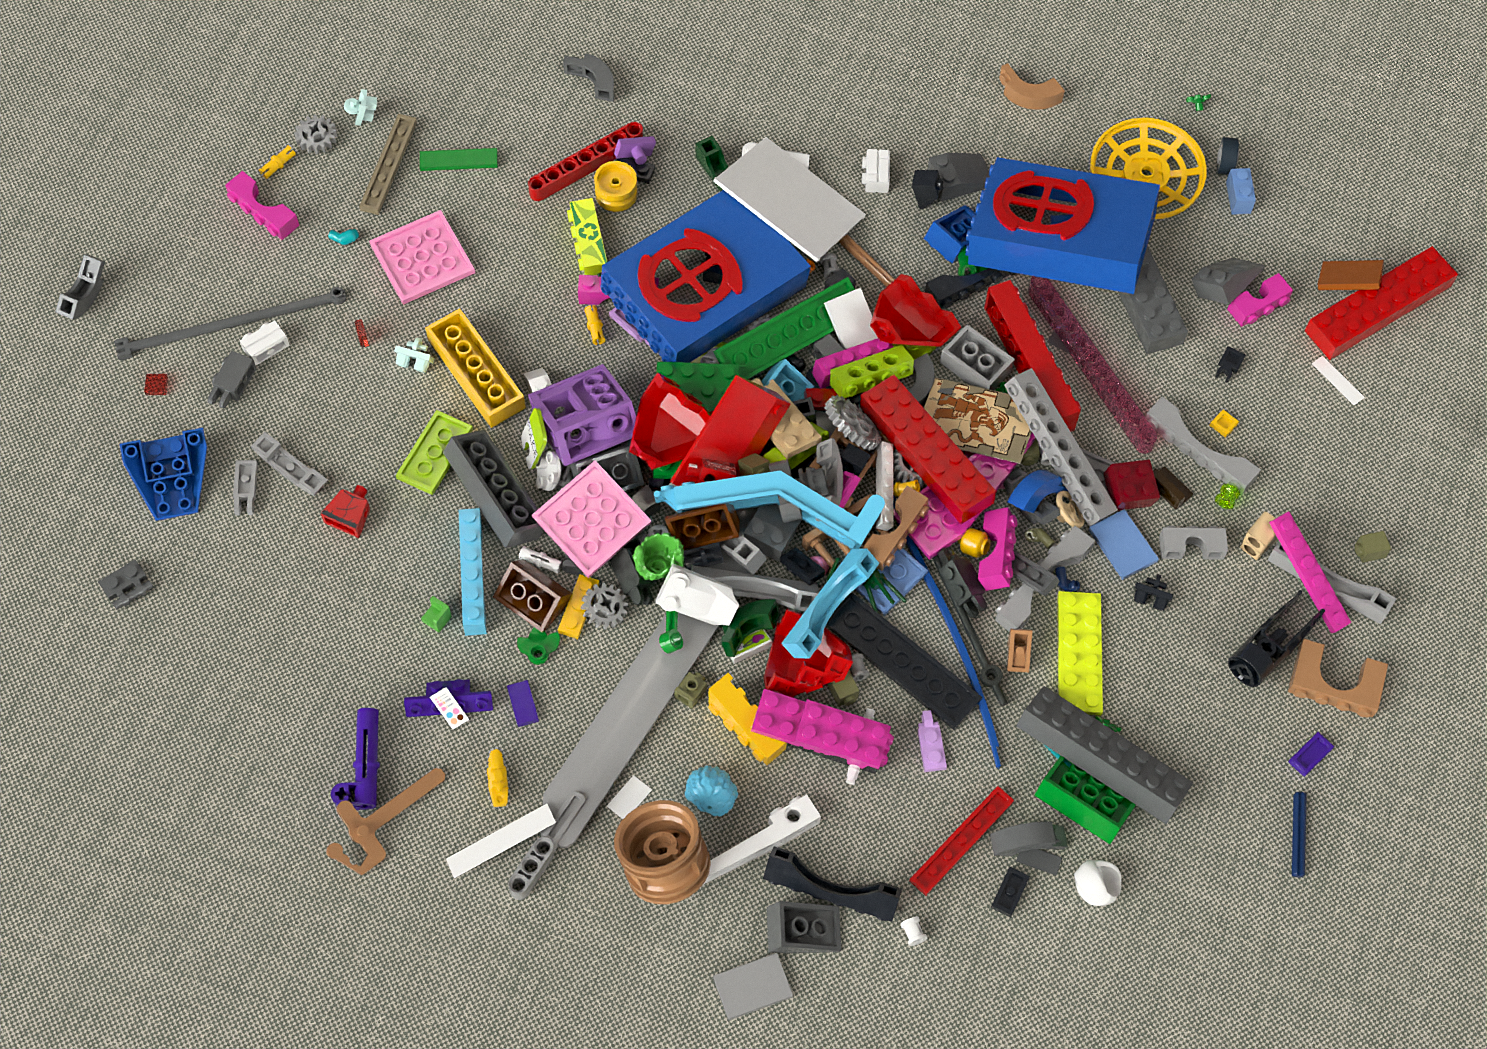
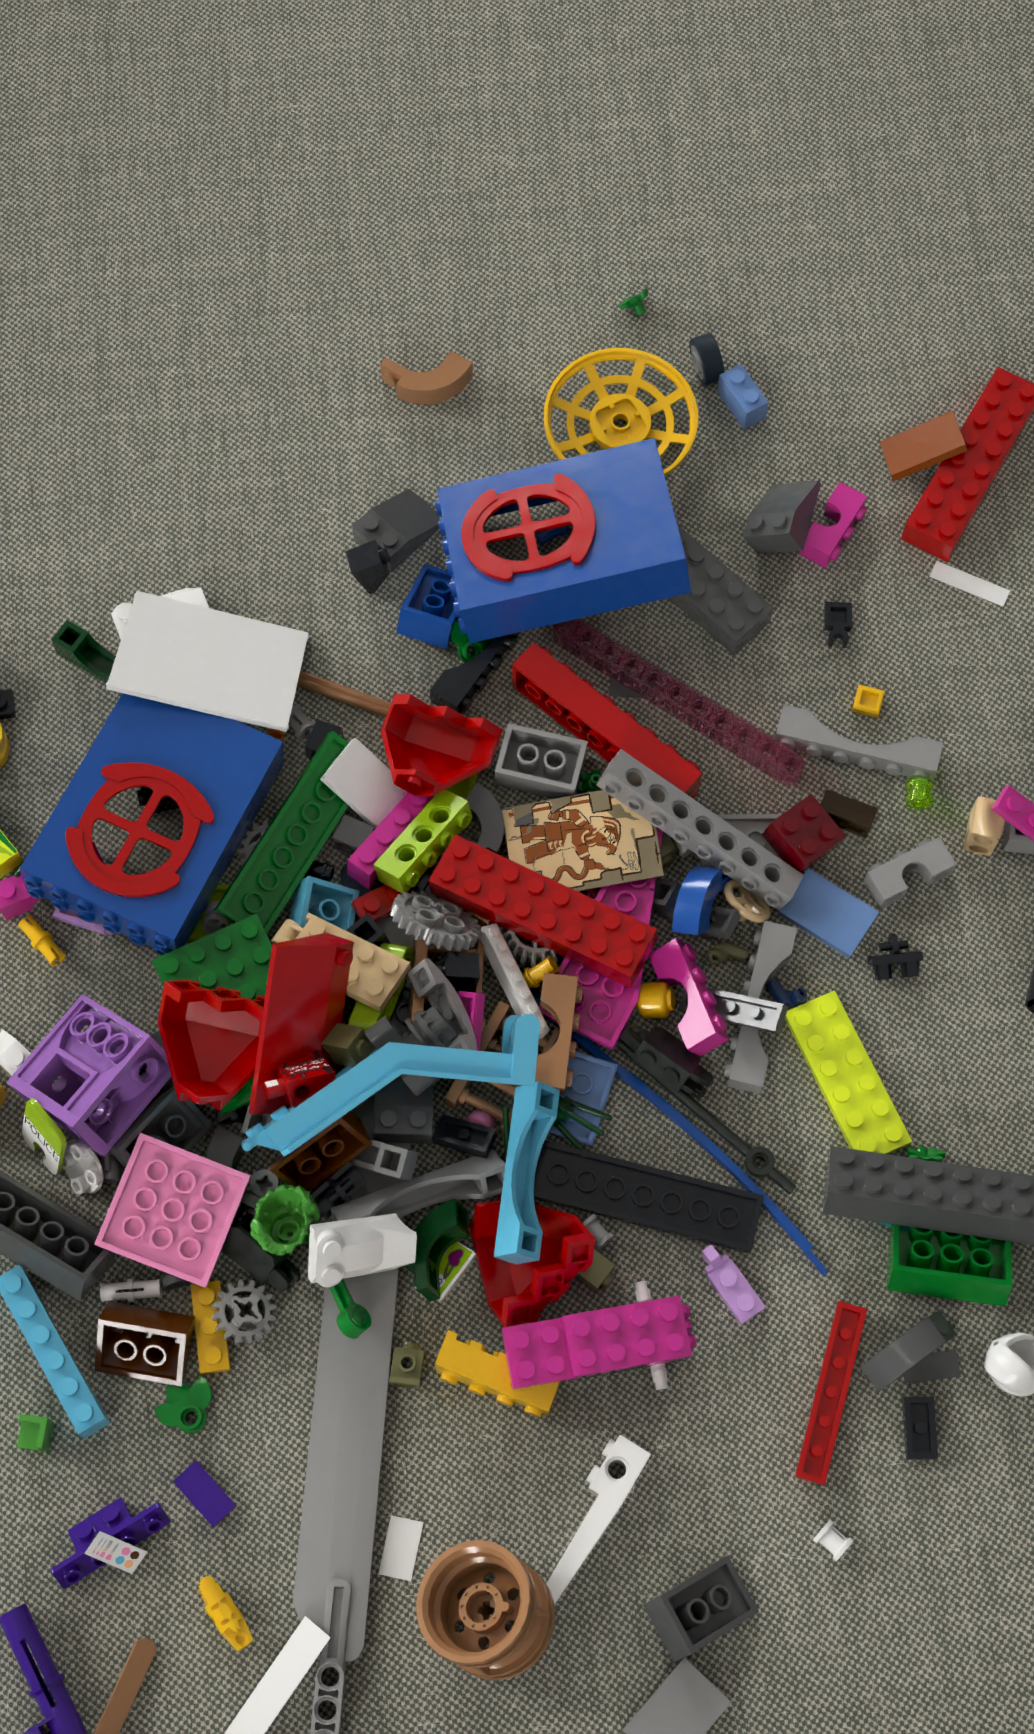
camera: 25 degrees left, 5 degrees up
(711, 790) = (499, 1488): medium azure hair -> none
(876, 899) = (767, 1526): black arch -> none
(877, 171) = (294, 569): white brick -> none
(1019, 650) = (777, 1113): medium nougat slope -> none

